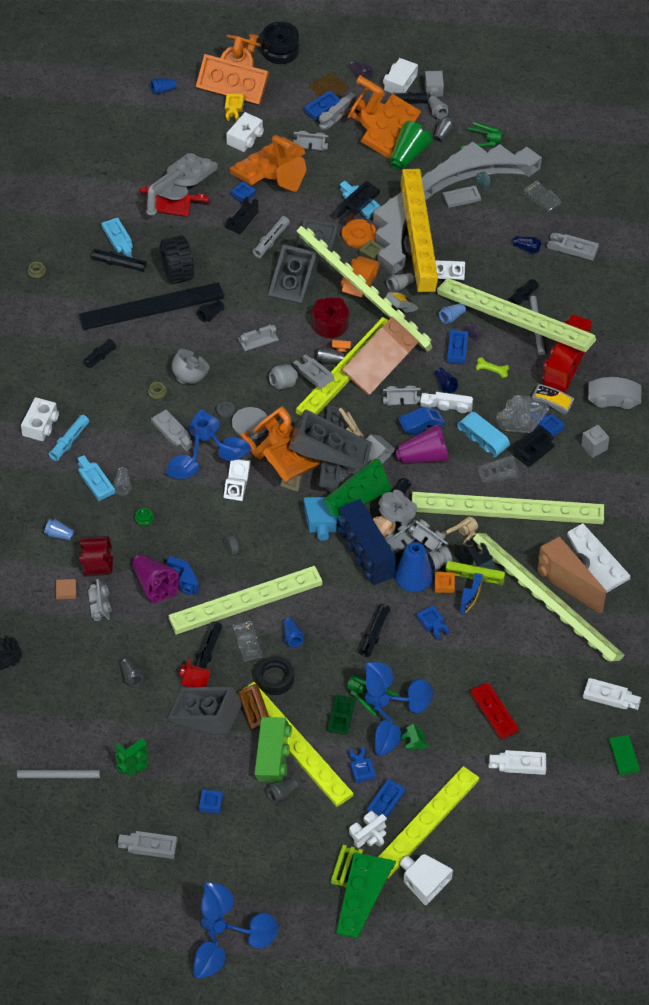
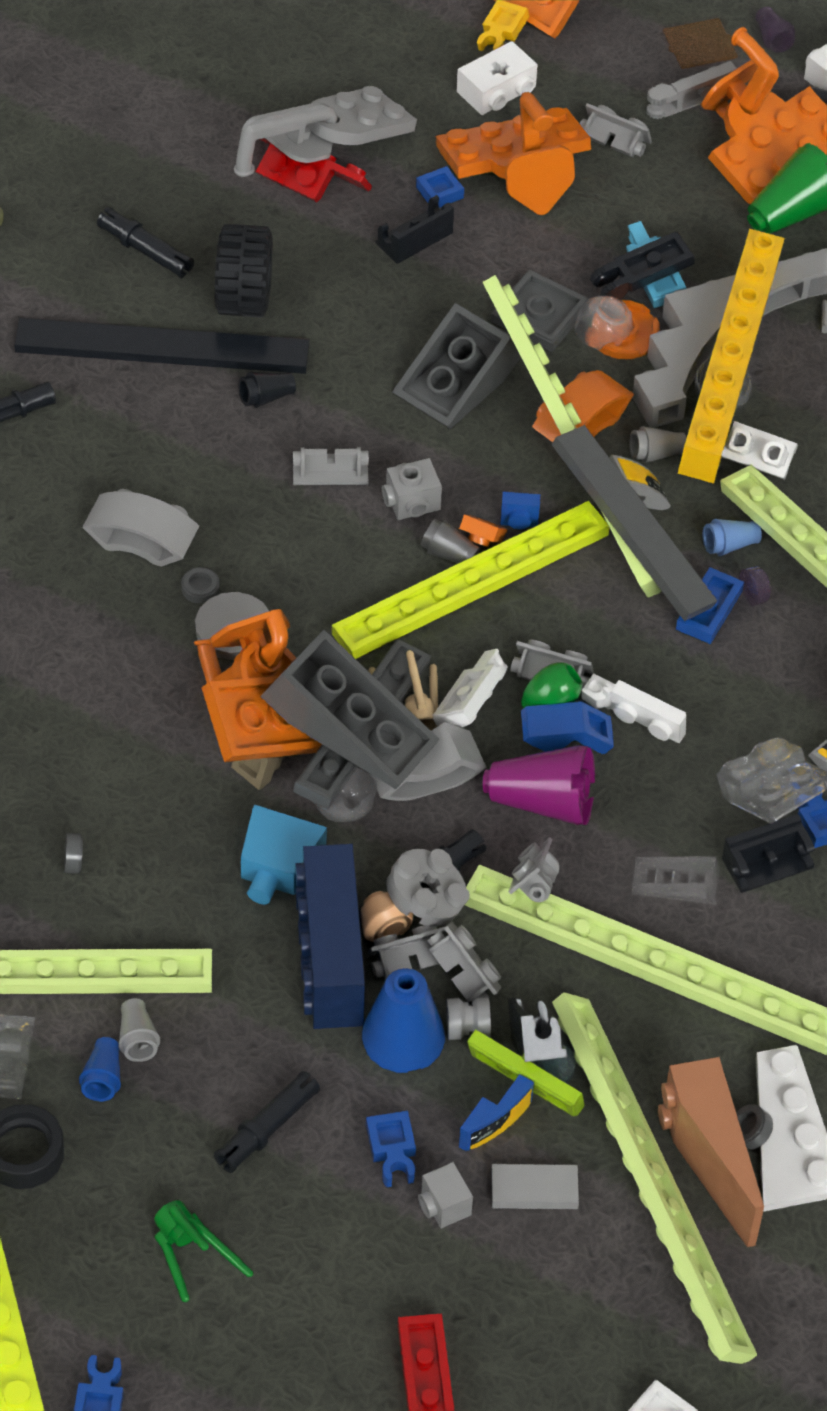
camera: 20 degrees right, 0 degrees up
(118, 236) = (165, 199): medium azure hinge -> none
(157, 386) = (83, 499): olive plate -> none
(172, 430) = (79, 590): light grey hinge -> none
(187, 391) = (141, 526): none -> light grey brick
(189, 368) = (166, 475): light grey cylinder -> none
(204, 427) = (143, 601): blue plant -> none
(237, 479) = (157, 722): white slope -> none
(260, 248) = (439, 291): light grey pin -> none
(283, 377) = (338, 556): light grey head -> none
(300, 612) = (137, 1032): none -> light grey cone
(302, 336) = (412, 489): none -> light grey brick
(314, 371) = (400, 566): light grey hinge -> none
(321, 105) = (666, 69): blue plate -> none
(330, 317) = (483, 467): dark red brick -> none
(341, 715) = (116, 1276): dark green slope -> none
(350, 232) = (603, 321): none -> clear hair
(354, 330) = (520, 510): none -> blue plate
(364, 485) = (375, 821): green wing -> none
(370, 250) = (626, 365): olive plate -> none
(372, 418) = (471, 691): none -> white hinge
(377, 680) = (191, 1236): blue plant -> none
(380, 356) = (544, 574): nougat slope -> none
(407, 403) = (553, 685): none -> green animal
(411, 319) = (634, 523): none -> dark grey tile
(417, 738) = (239, 1379): green tile -> none
(438, 486) = (535, 872): none -> light grey hinge
(444, 582) = (455, 1071): orange plate -> none
(447, 382) = (655, 666): clear blue cone -> none
(465, 527) = (552, 972): tan plant -> none
(466, 634) = (445, 1196): none -> light grey plate
(484, 433) = (680, 795): medium azure beam -> none
(500, 618) = (535, 1186): none -> light grey tile
(501, 370) = (776, 679): lime piece -> none

